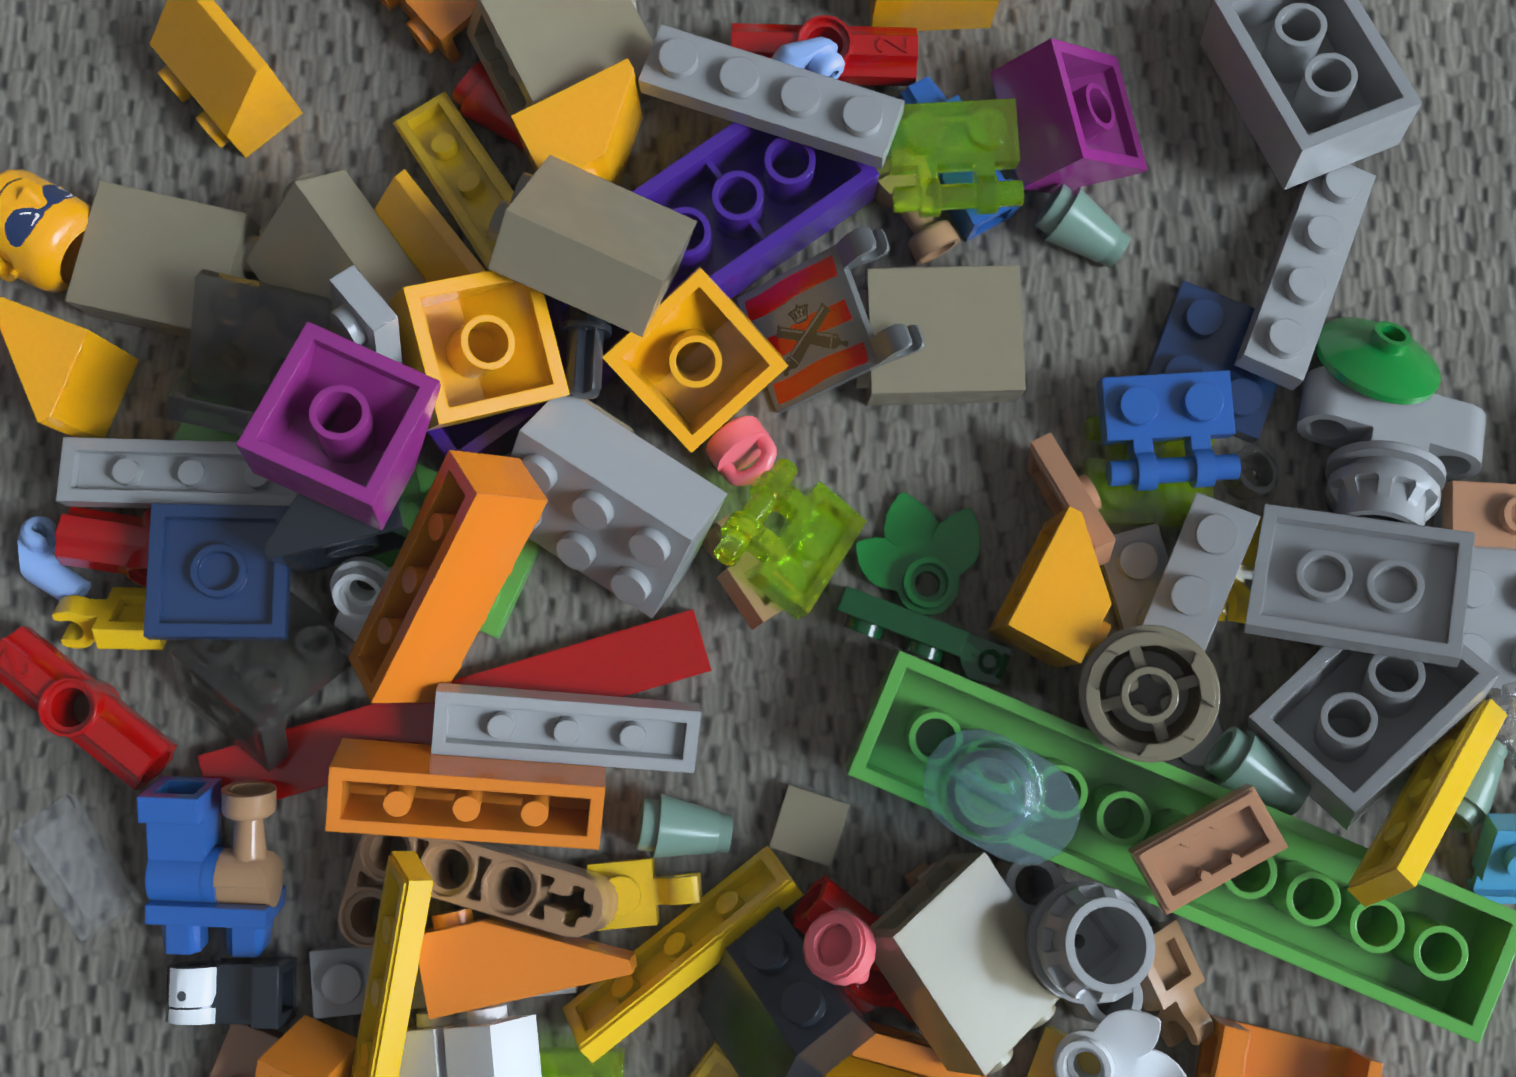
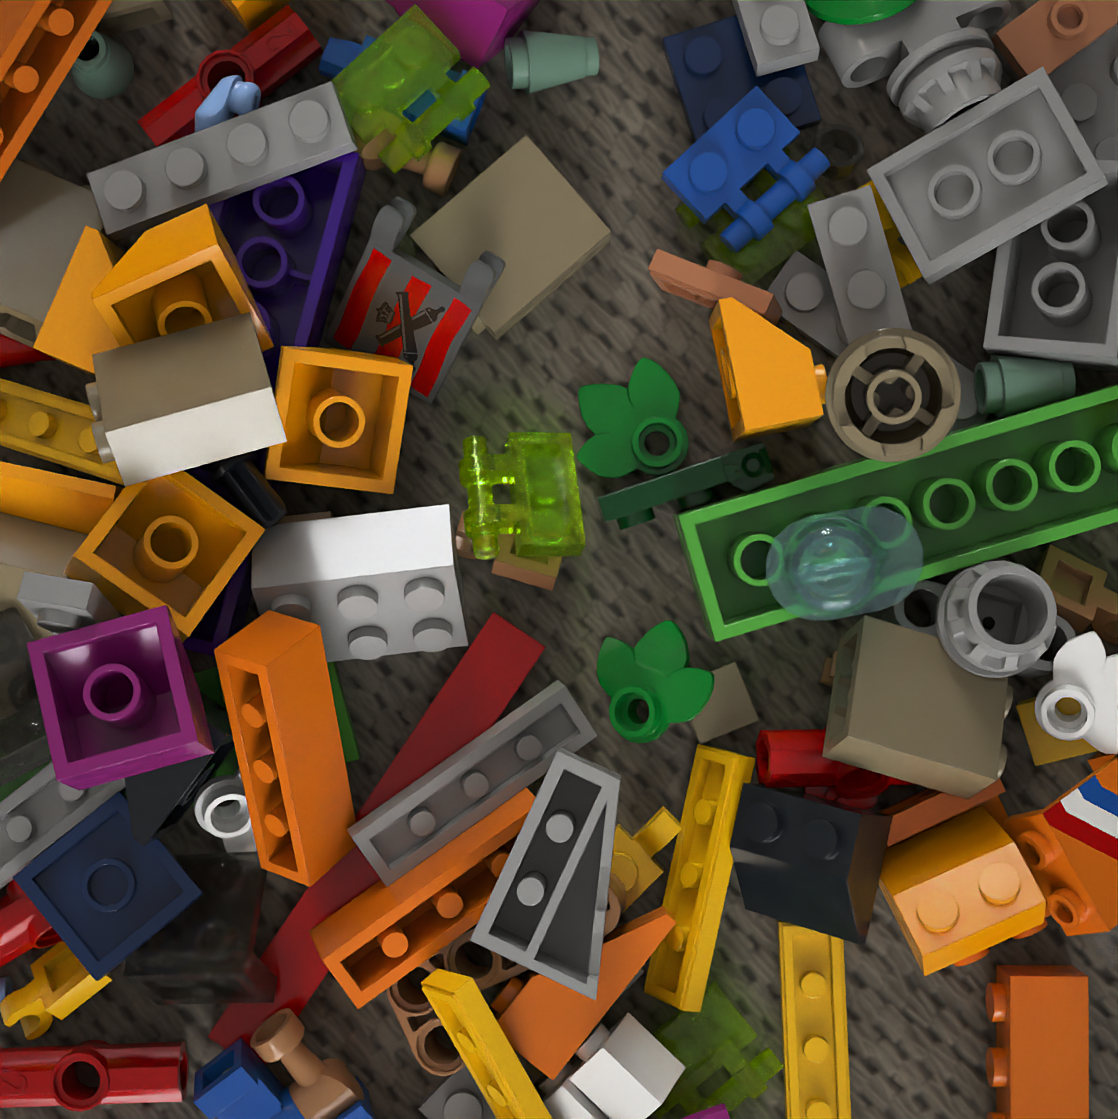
camera: 35 degrees left, 5 degrees up
(565, 857) = (557, 877): none -> light grey wedge
(660, 152) = (176, 281): none -> light orange slope
(681, 828) = (640, 776): sand green cone -> none
(738, 446) = (423, 457): coral tile -> none
(780, 764) = (653, 673): none -> green plate
(839, 948) = (815, 776): coral tile -> none
(1207, 848) = (1028, 475): nougat plate -> none

